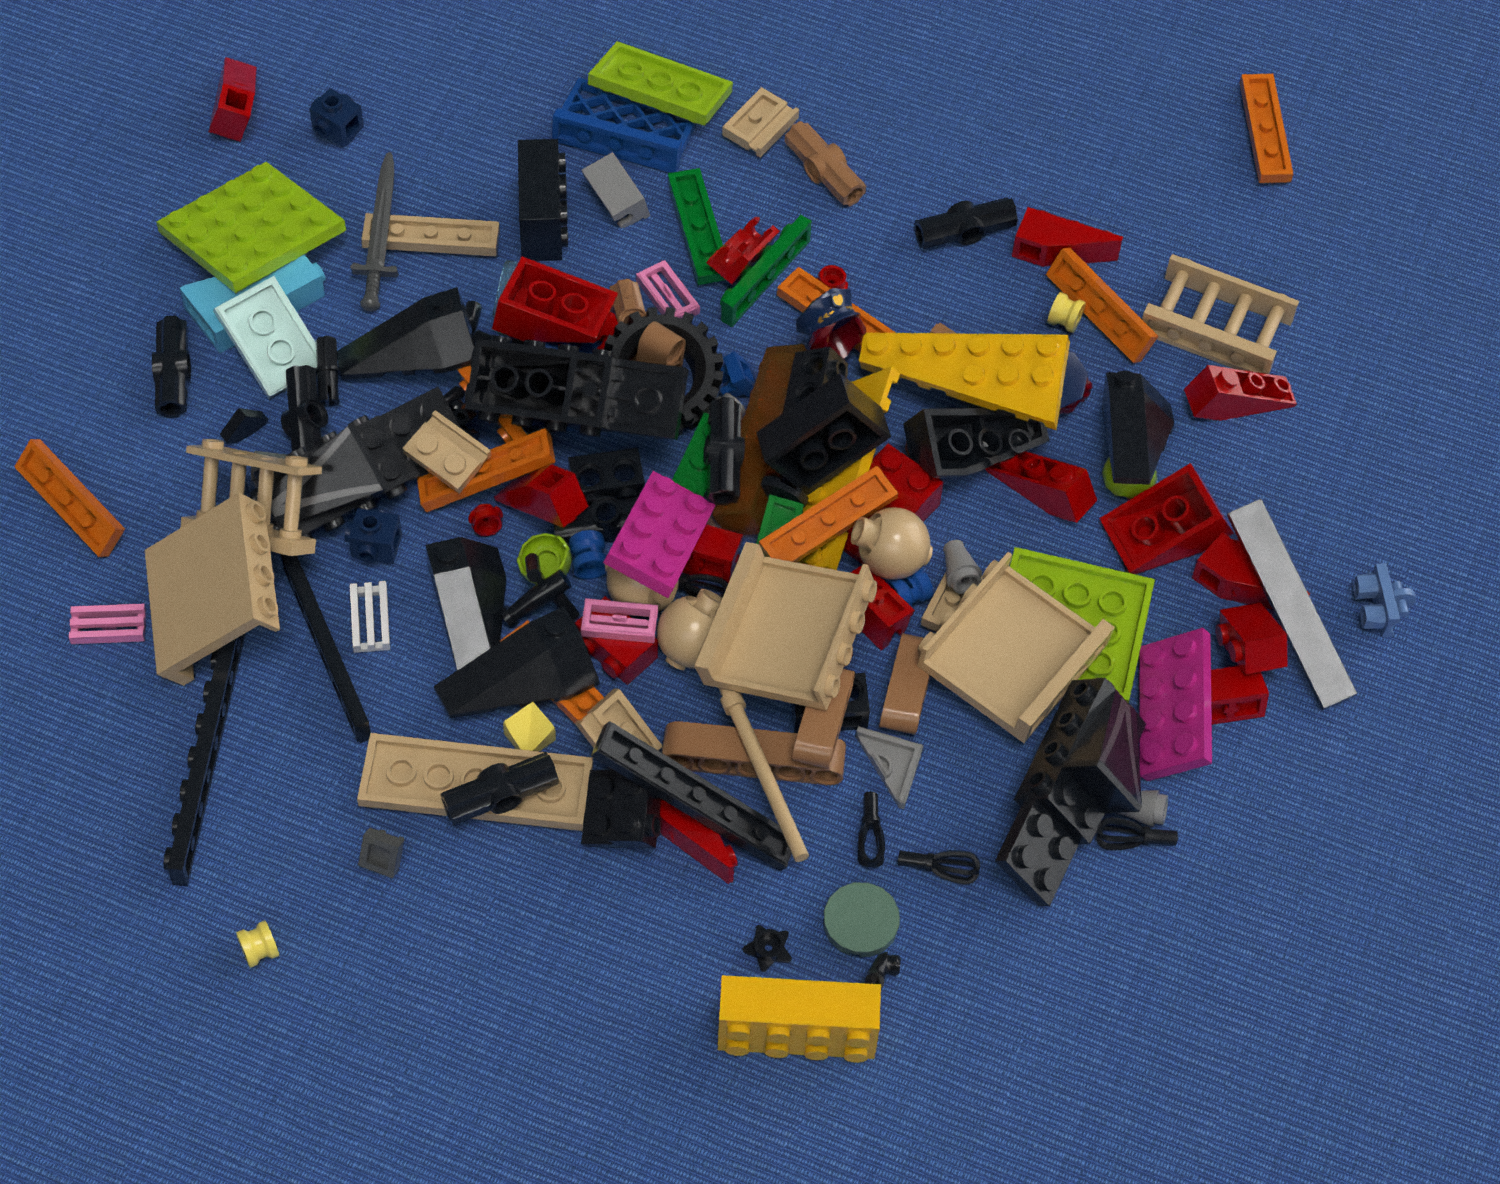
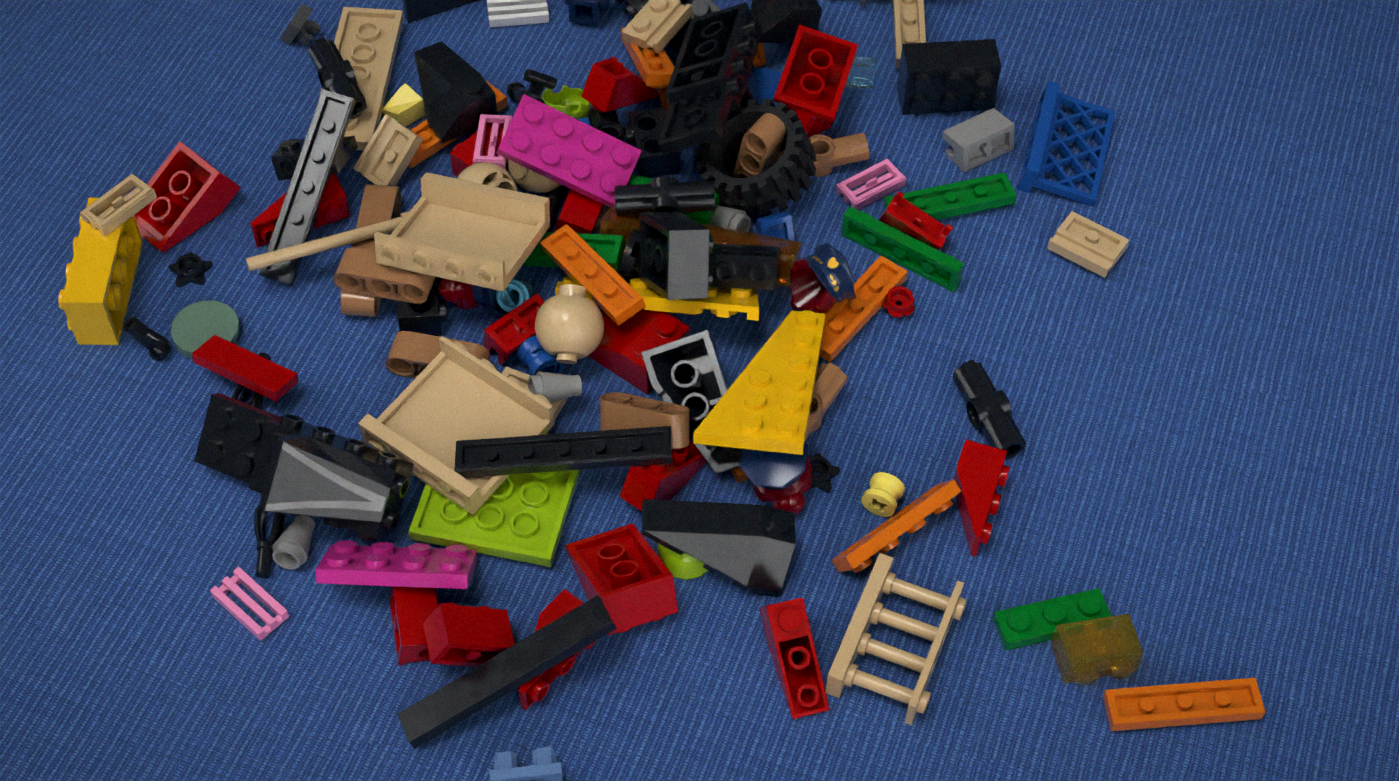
camera: 90 degrees right, 5 degrees down
(469, 593) = (545, 49): black wedge -> none
(660, 83) = (1115, 164): lime plate -> none
(671, 958) = (187, 198): none -> red slope
(751, 1009) = (121, 208): none -> tan tile
(825, 163) = (1044, 294): medium nougat piece -> none
(871, 821) = (298, 335): black piece -> none
(893, 759) = (361, 355): light grey tile -> none
(931, 861) = (245, 368): none -> red tile
(999, 489) = (633, 411): none -> medium nougat beam
(1055, 550) = (564, 452): none -> black tile
(1185, 207) = (1038, 620): none -> green plate
(1220, 176) = (1096, 649): none -> clear yellow brick
(1229, 826) = (231, 585): none -> bright pink tile

